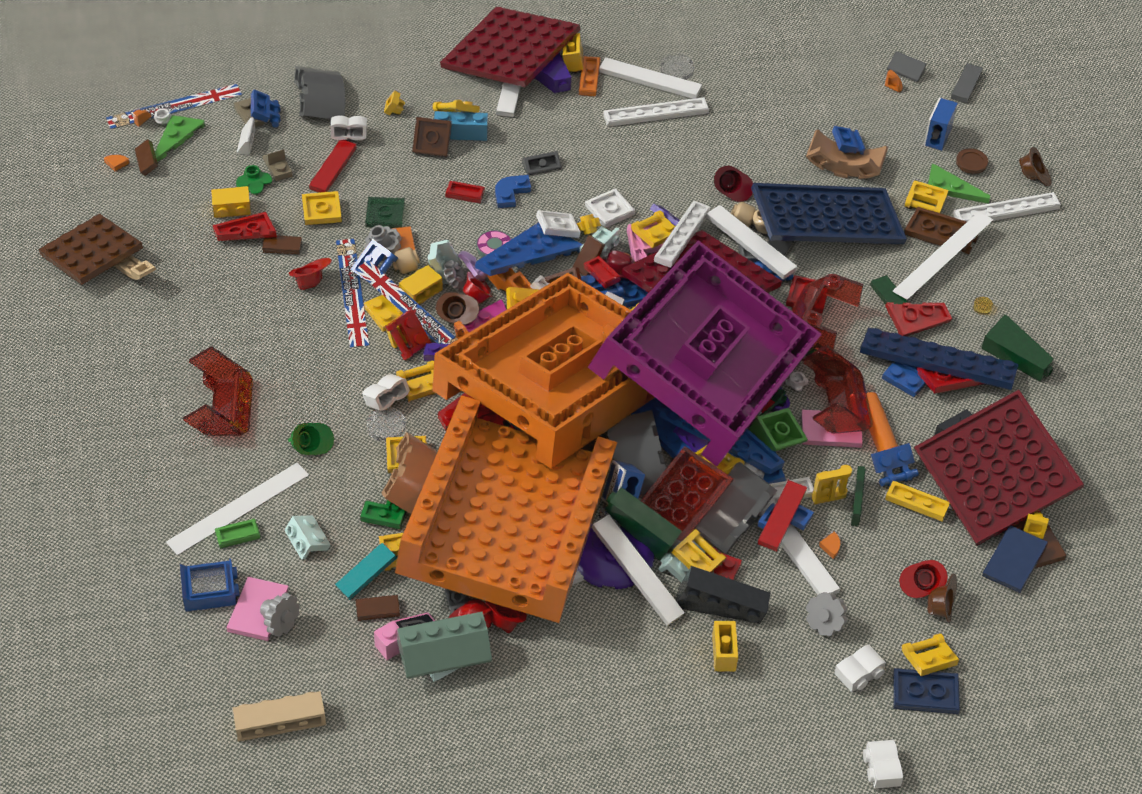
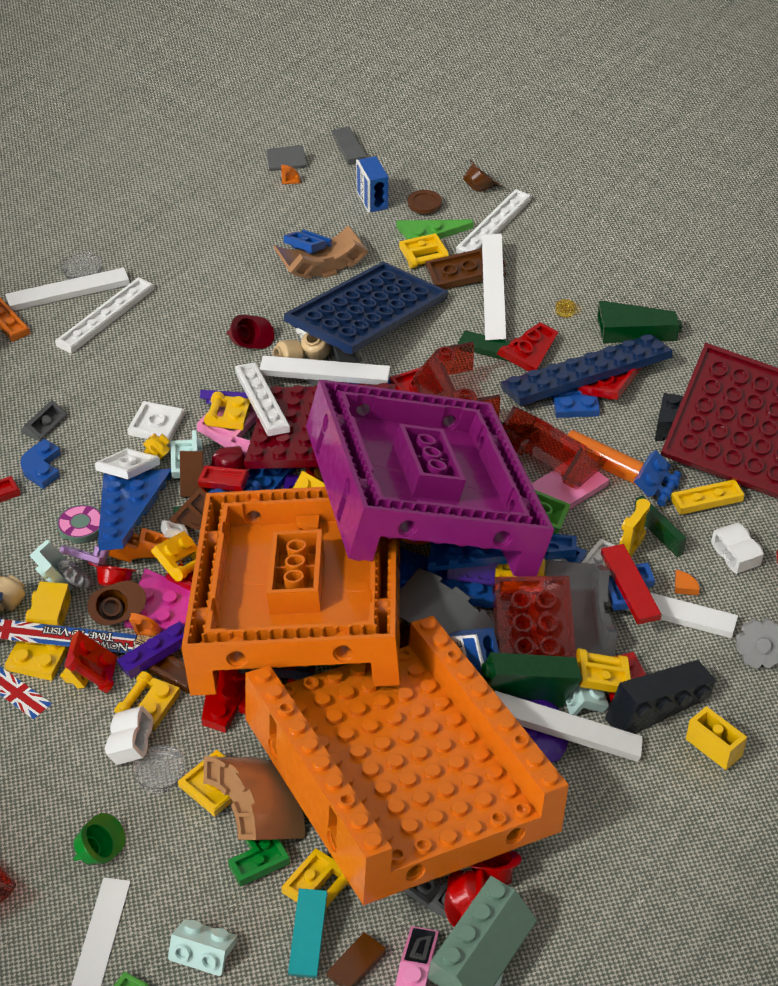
camera: 40 degrees left, 5 degrees down
(894, 547) = (737, 547): none -> white brick

